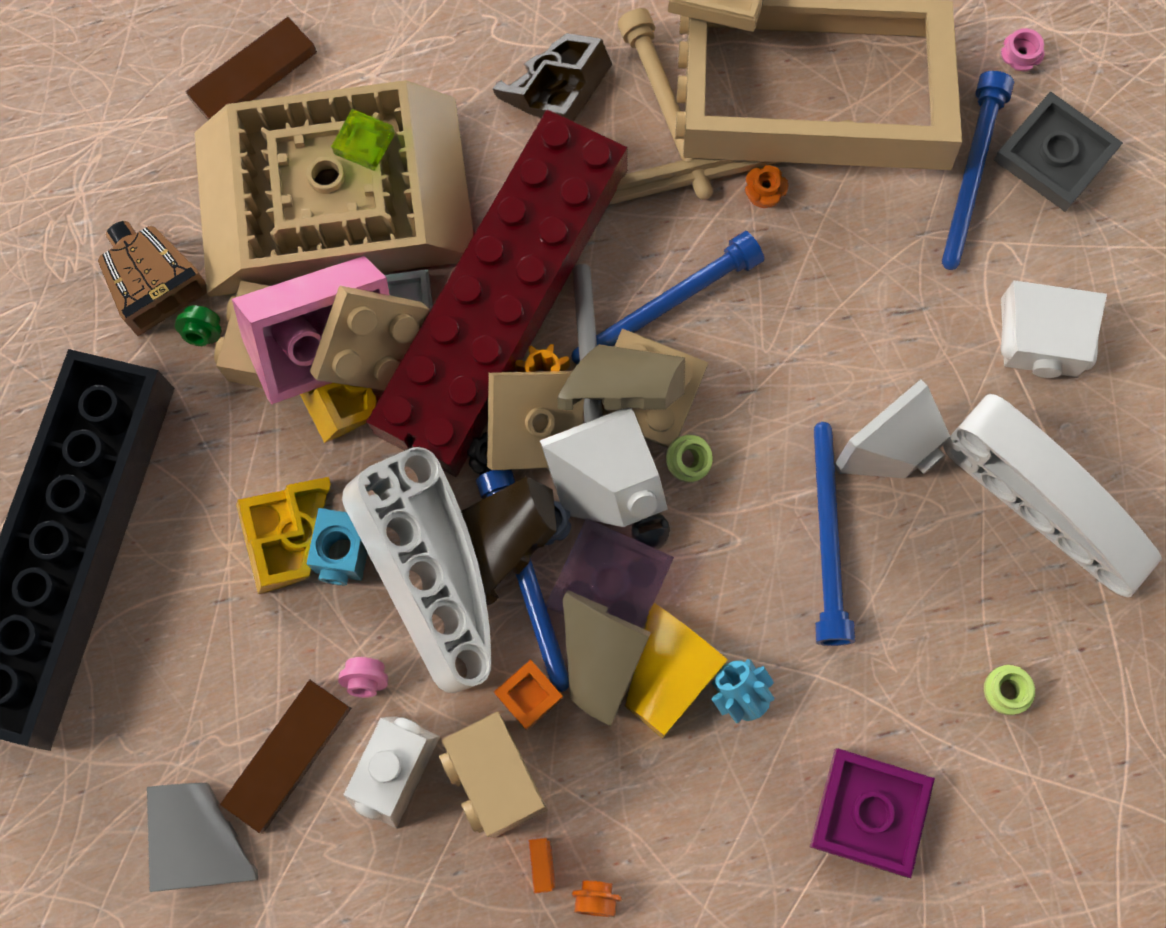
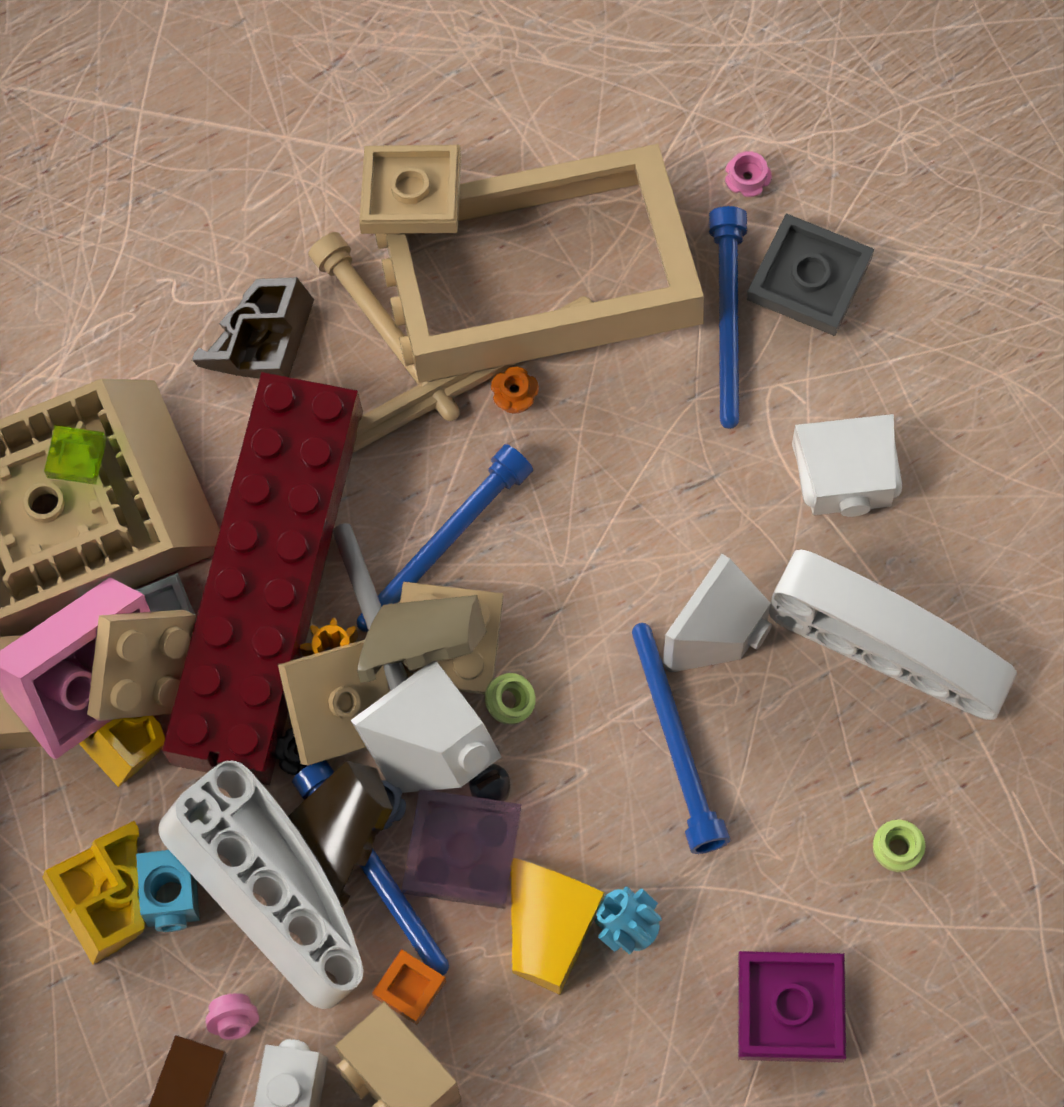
camera: 15 degrees left, 5 degrees down
(599, 656) = (472, 925): dark tan slope -> none

